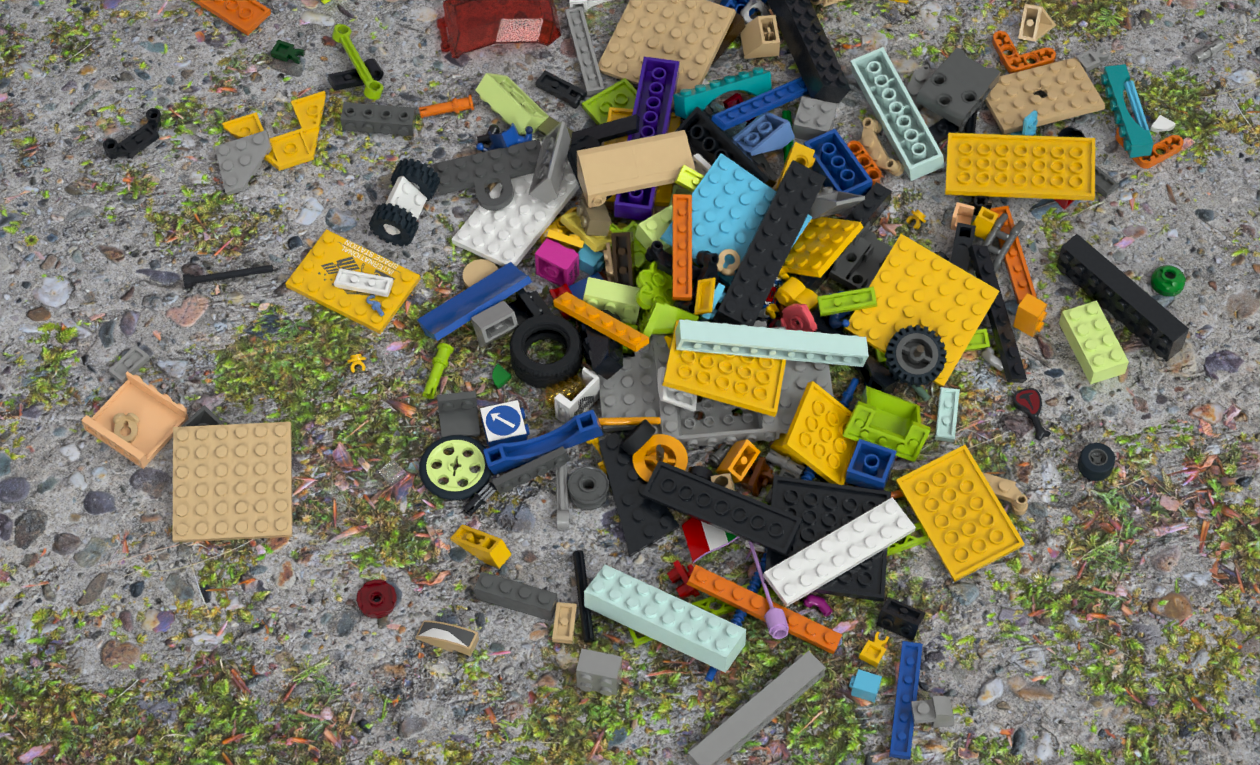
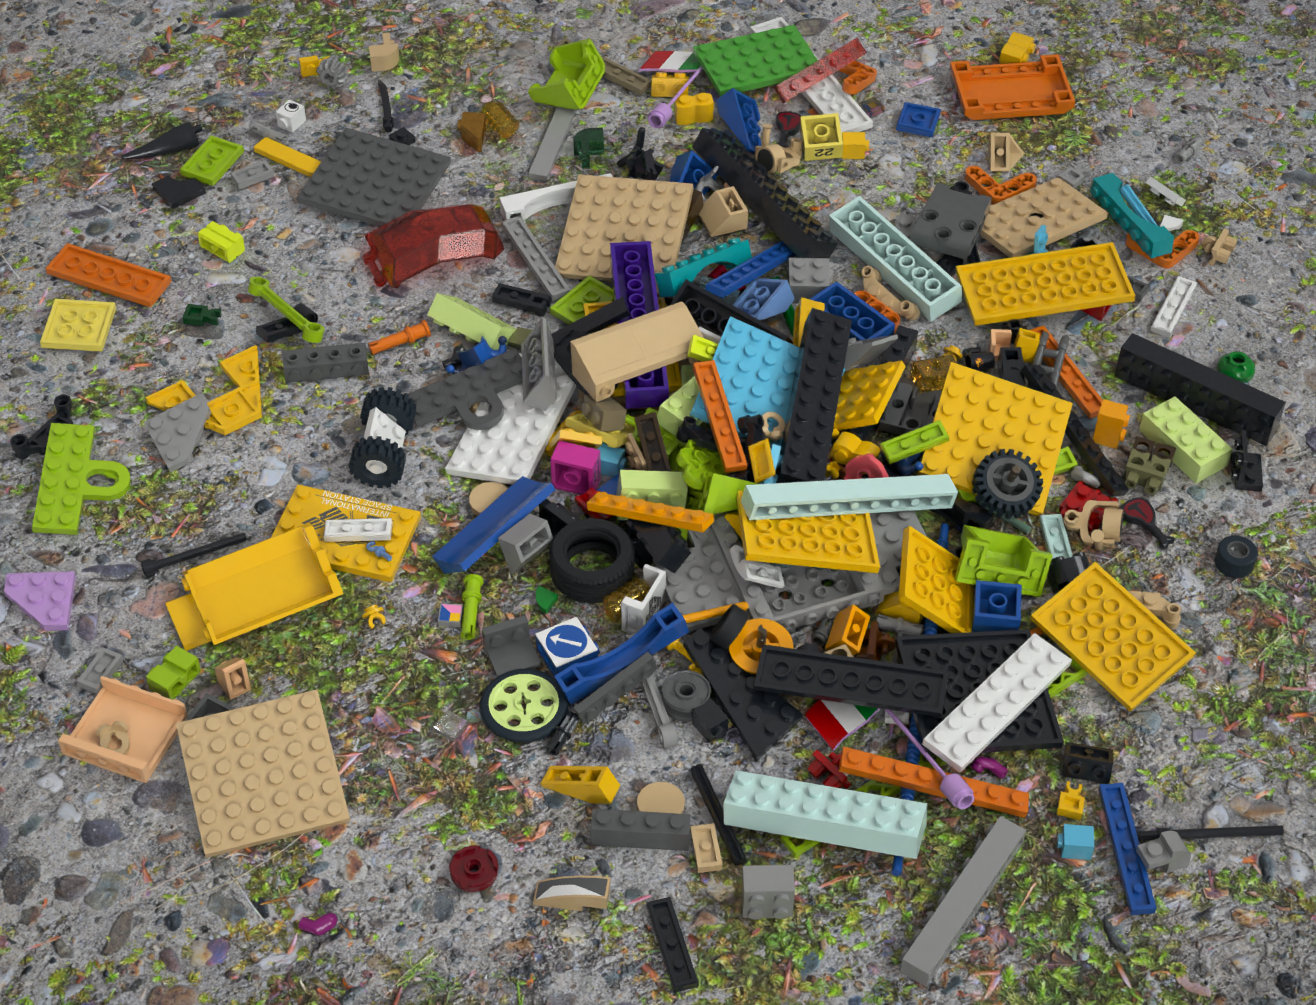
camera: 15 degrees left, 10 degrees down
(100, 289) = (43, 596): none -> lavender plate
(140, 185) = (66, 476): none -> lime plate
(184, 41) = (78, 325): none -> light yellow plate
(185, 380) = (174, 674): none -> lime brick
(230, 394) = (233, 677): none -> light nougat slope
(245, 619) = (320, 925): none -> magenta arm
(265, 318) = (253, 588): none -> yellow panel
(419, 374) = (450, 615): none -> tile
(513, 696) = (672, 944): none -> black tile
(541, 574) = (661, 798): none -> tan tile
(601, 515) = (710, 721): none -> black brick
(889, 231) = (931, 372): none -> clear yellow brick
(938, 227) = (978, 360): none -> black piece
(942, 444) = (1064, 571): none -> black cylinder
(982, 54) = (961, 187): none -> black plate
(982, 702) = (1214, 832): none -> black bar
(985, 387) = (1078, 497): none -> red plate
(997, 409) = (1111, 524): none -> tan piece
(1051, 360) = (1146, 472): none -> olive hips
(1134, 208) = (1173, 306): none -> white tile
(1138, 379) = (1247, 466): none -> black bracket
(1166, 87) = (1158, 188): none -> white plate
(1194, 156) = (1220, 248): none -> tan hips

